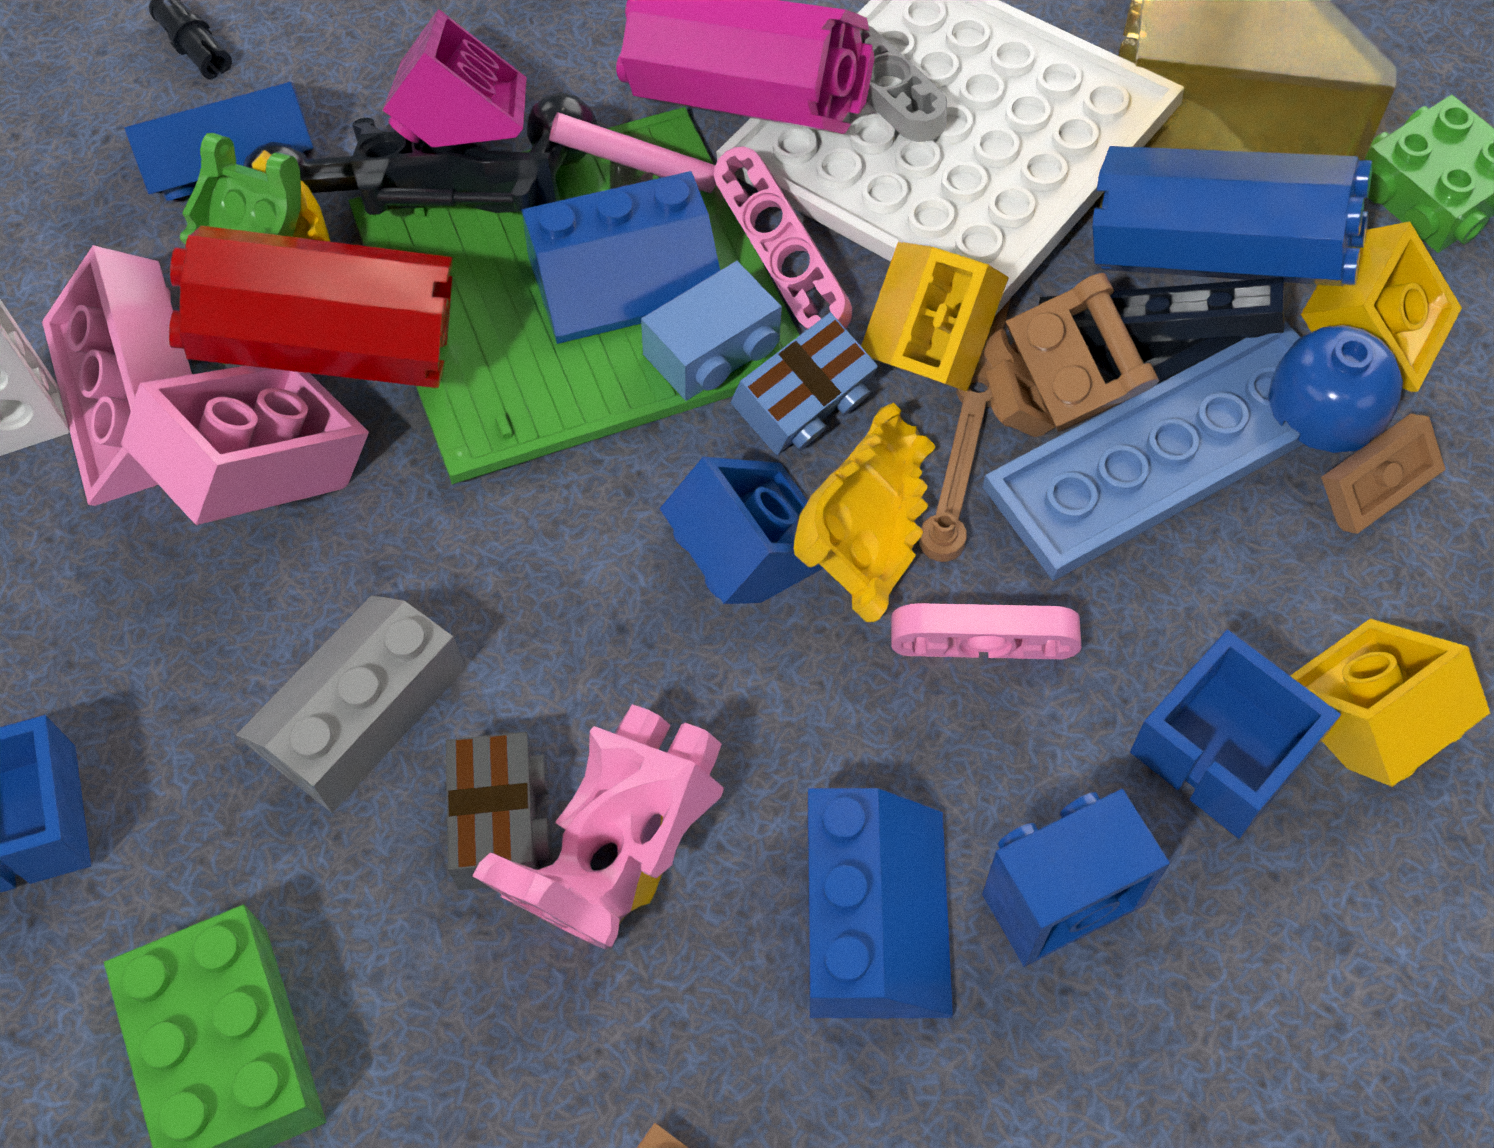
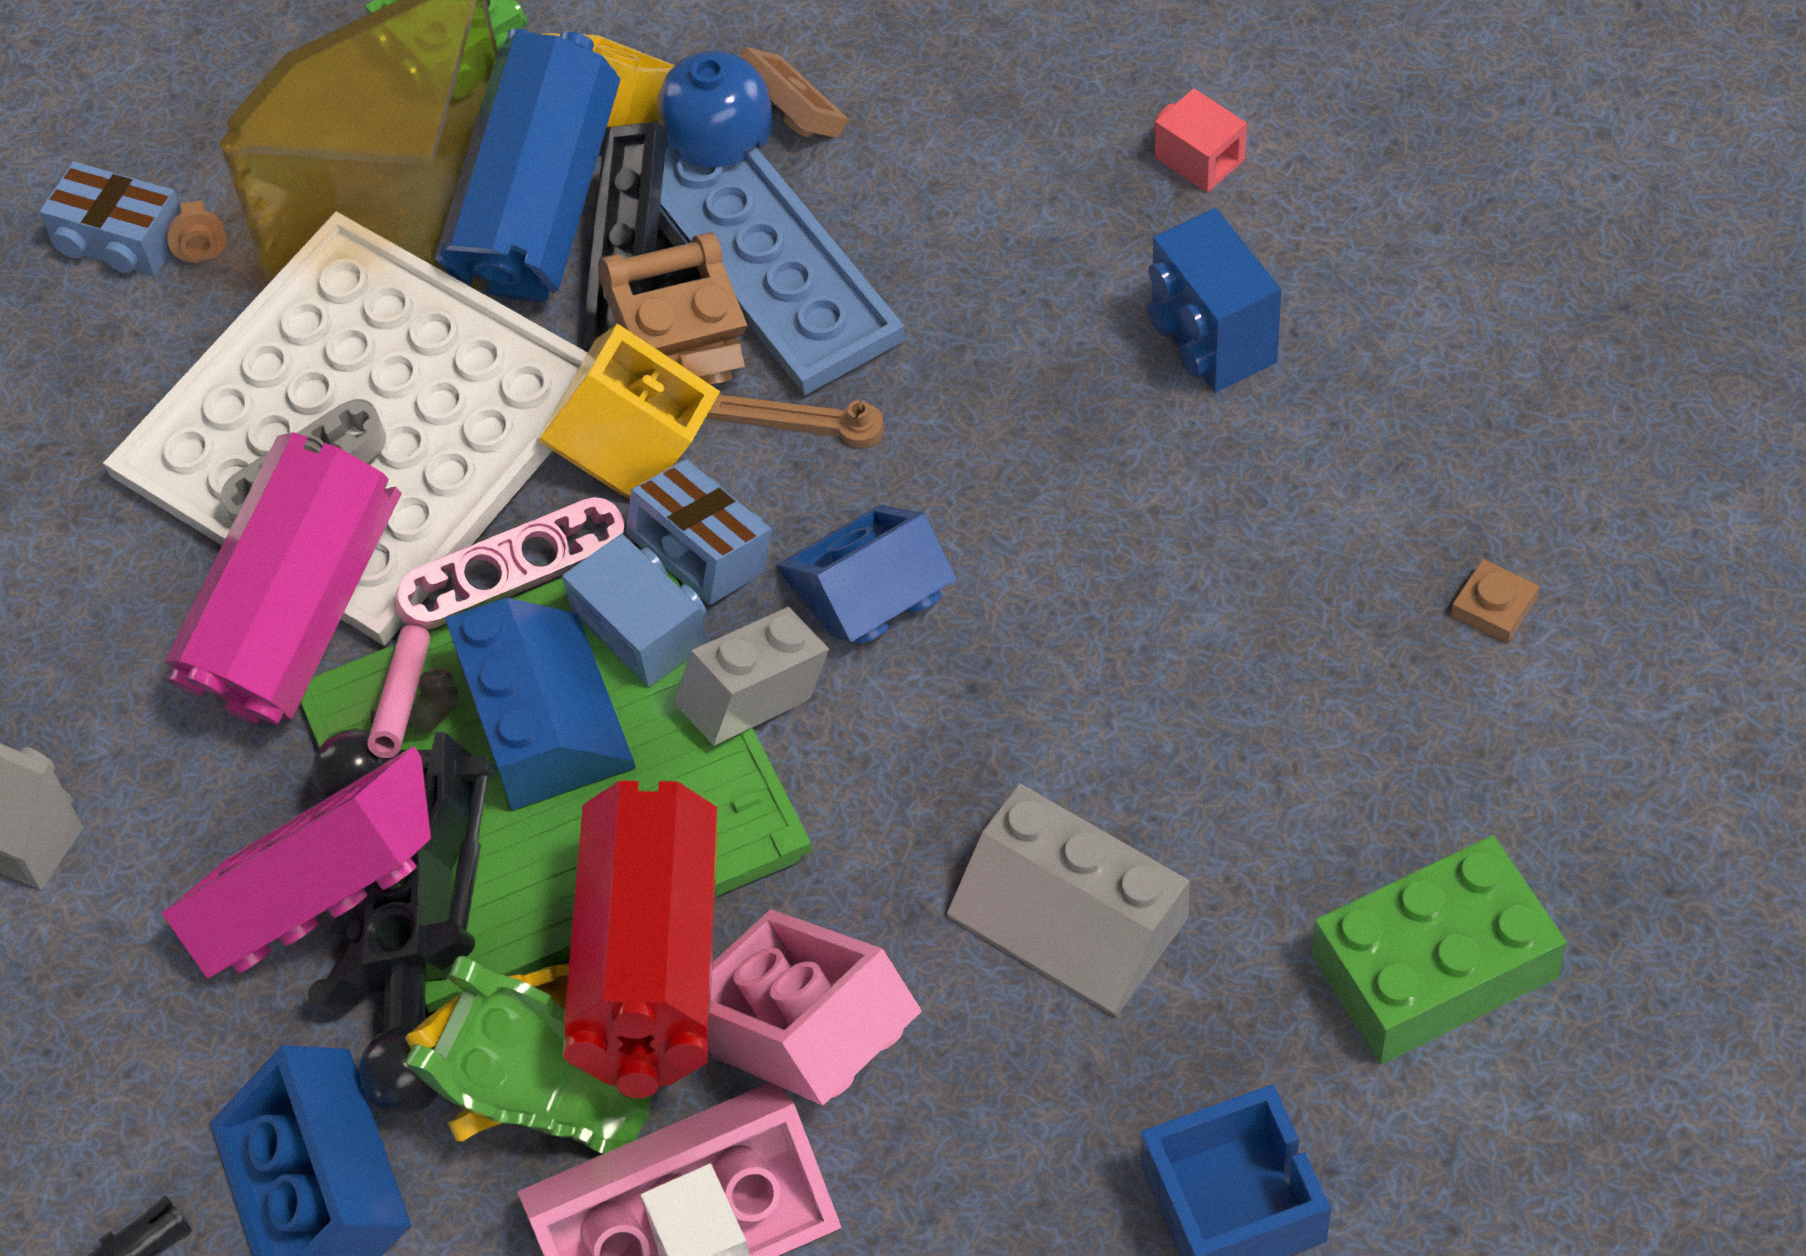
camera: 90 degrees left, 5 degrees down
(494, 804) = (1184, 754): brick -> none
(620, 417) = (750, 675): none -> light grey brick
(627, 799) = (1161, 623): bright pink hips -> none
(866, 513) = (847, 474): yellow animal -> none
(876, 906) = (1245, 464): blue slope -> none
(994, 629) = (968, 383): bright pink beam -> none
(1233, 732) = (1067, 196): blue piece -> none
(1344, 895) = (1200, 139): none -> coral brick
(1396, 698) = (1016, 105): yellow slope -> none

